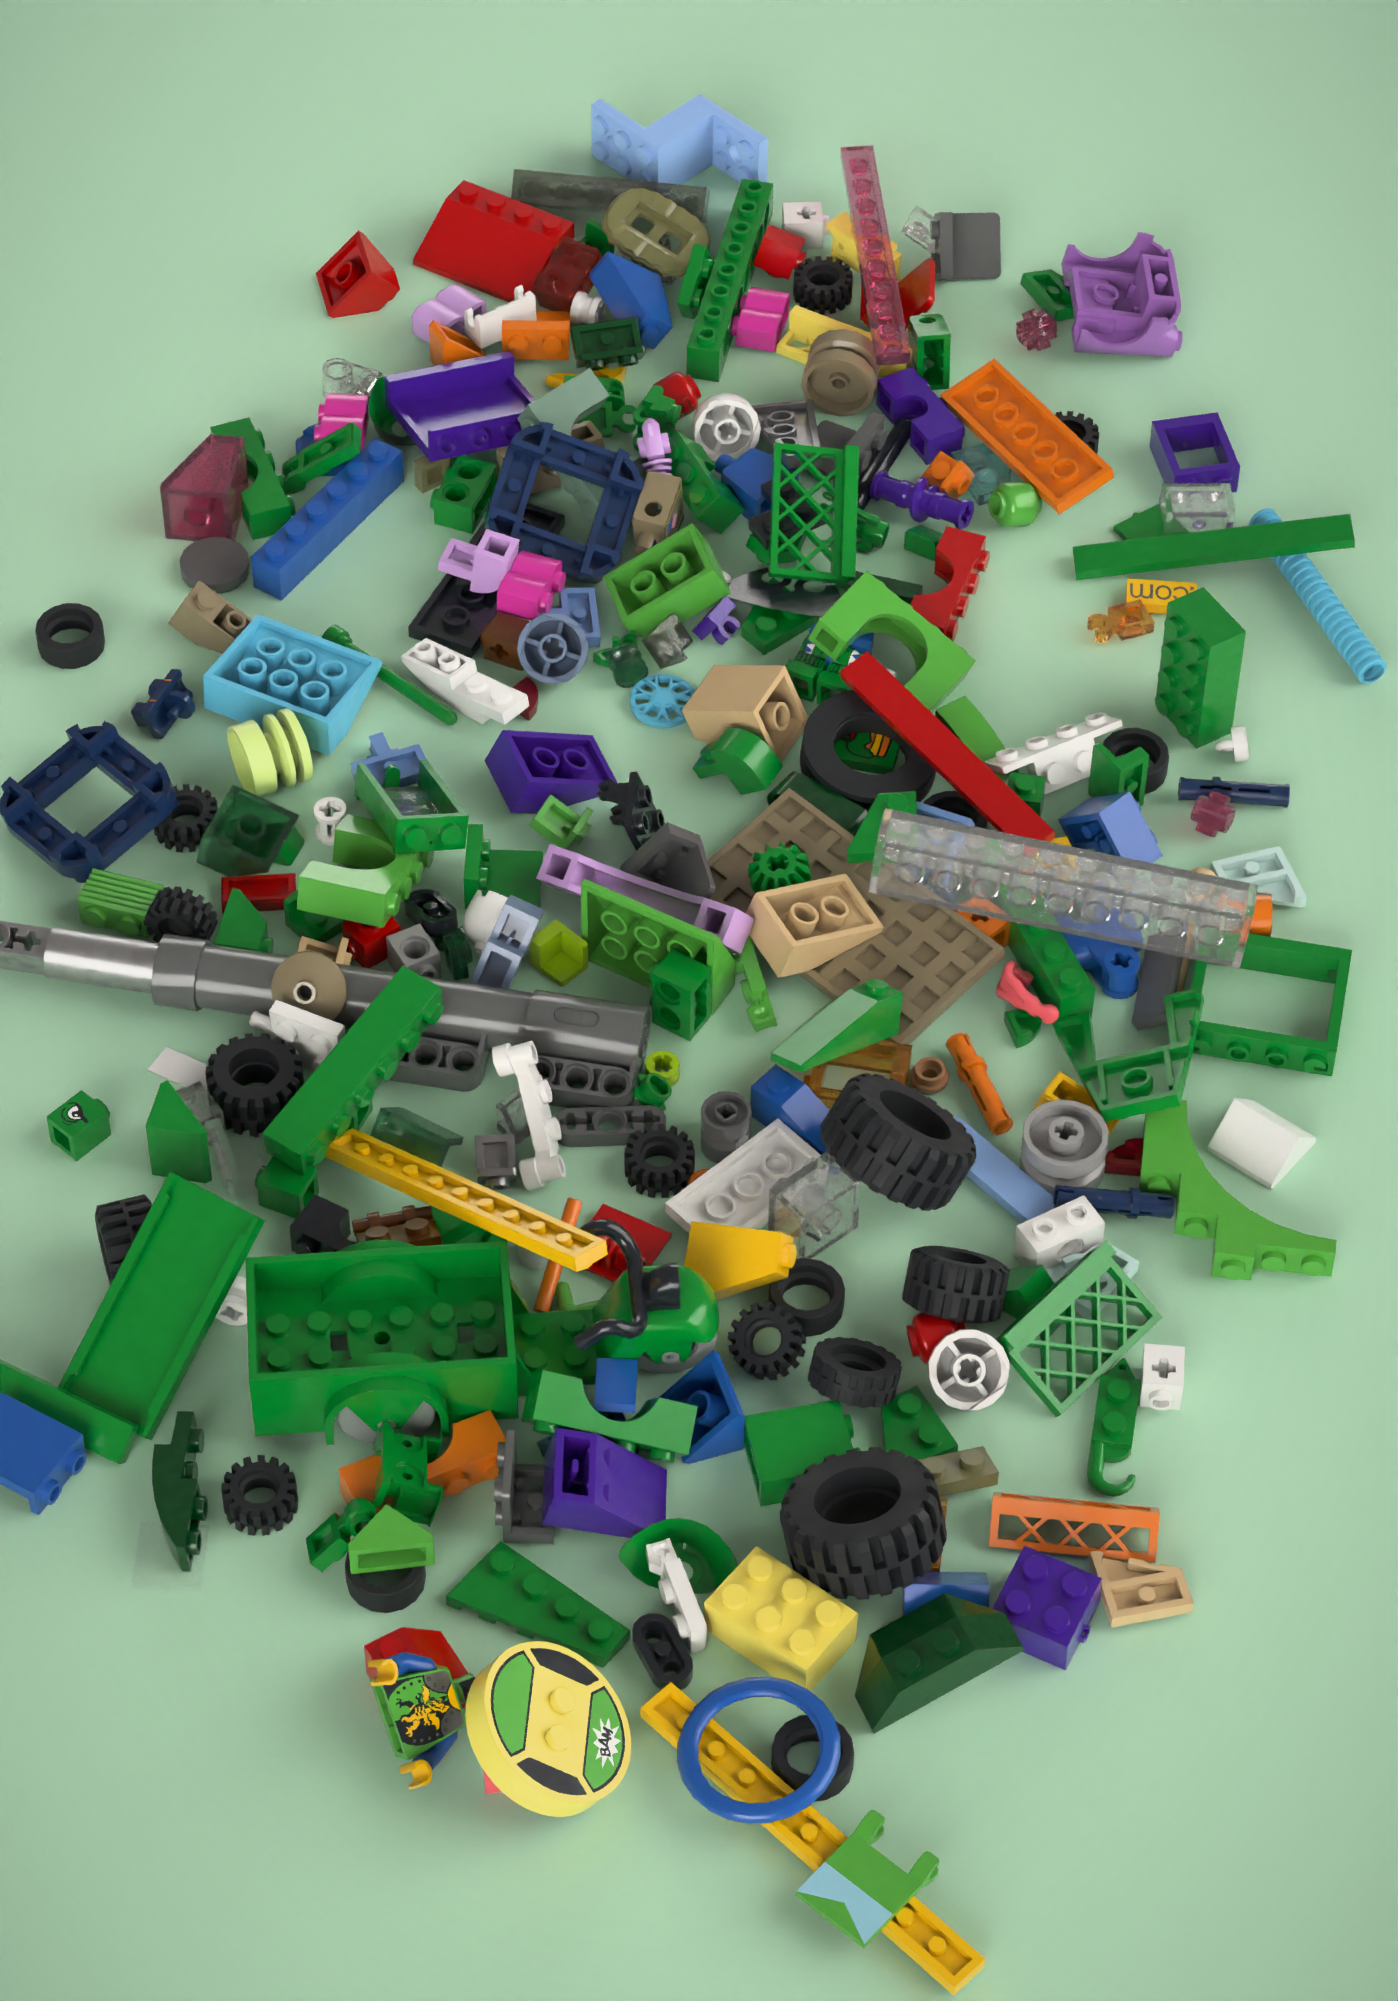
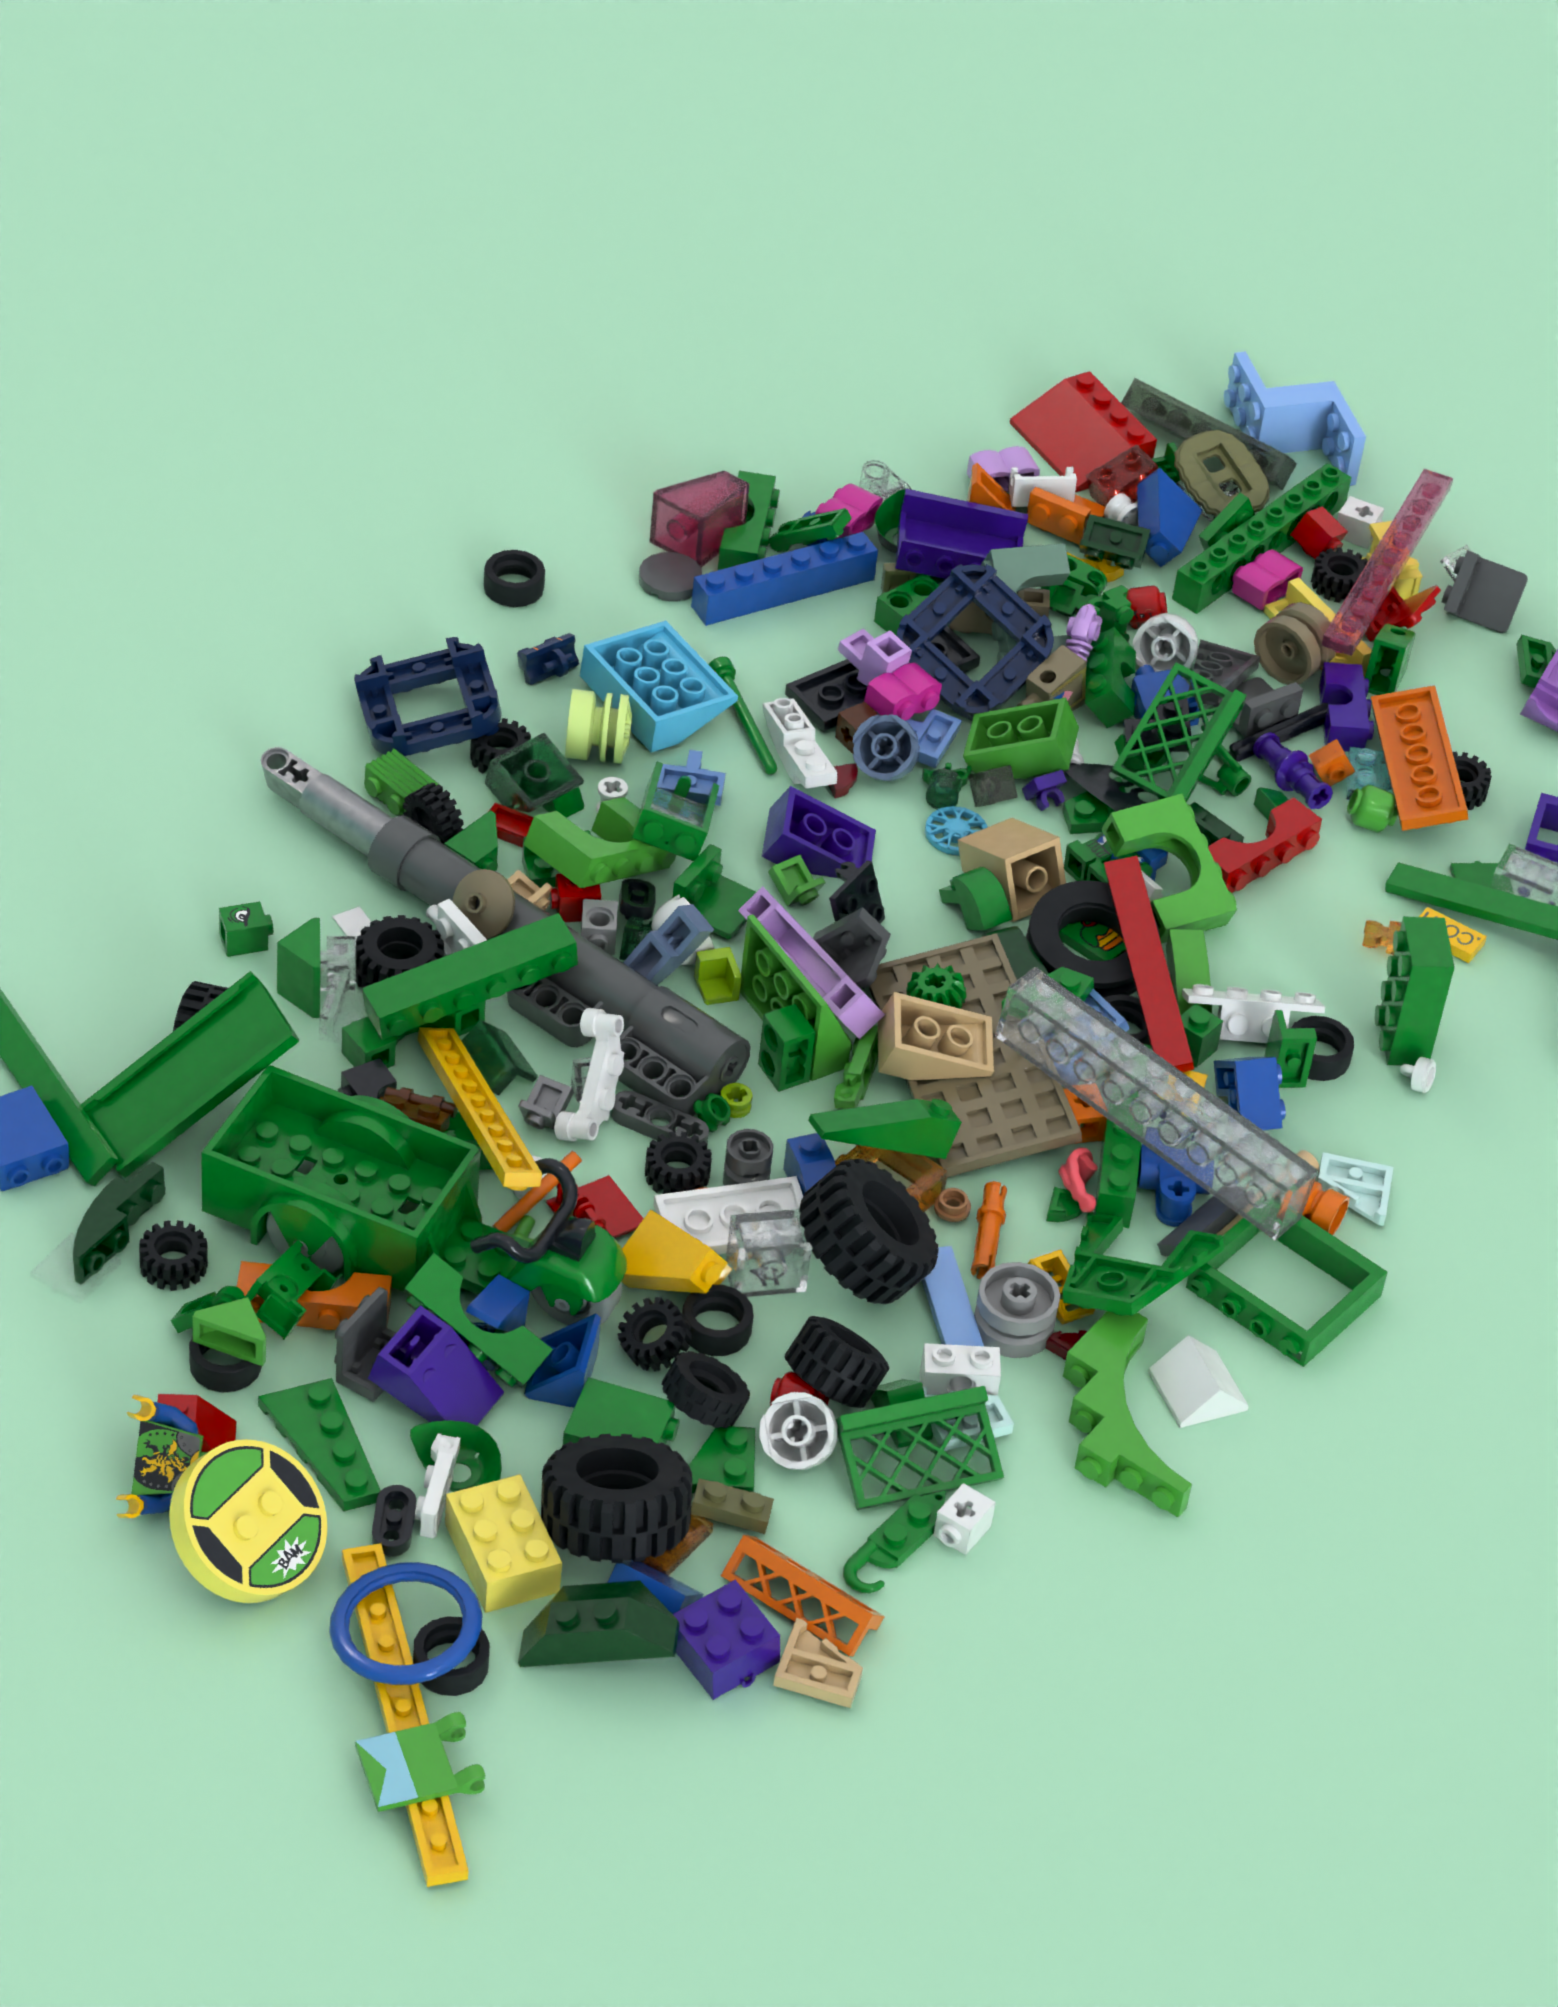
camera: 25 degrees right, 5 degrees down
(209, 619) = (628, 606): dark tan slope -> none
(356, 279) = (949, 413): red slope -> none
(1036, 330) = (1499, 683): clear pink gear -> none
(1123, 1202) = (1035, 1372): dark blue pin -> none
(1213, 814) = (1354, 1117): clear pink gear -> none
(1240, 792) = (1376, 1103): dark blue pin -> none

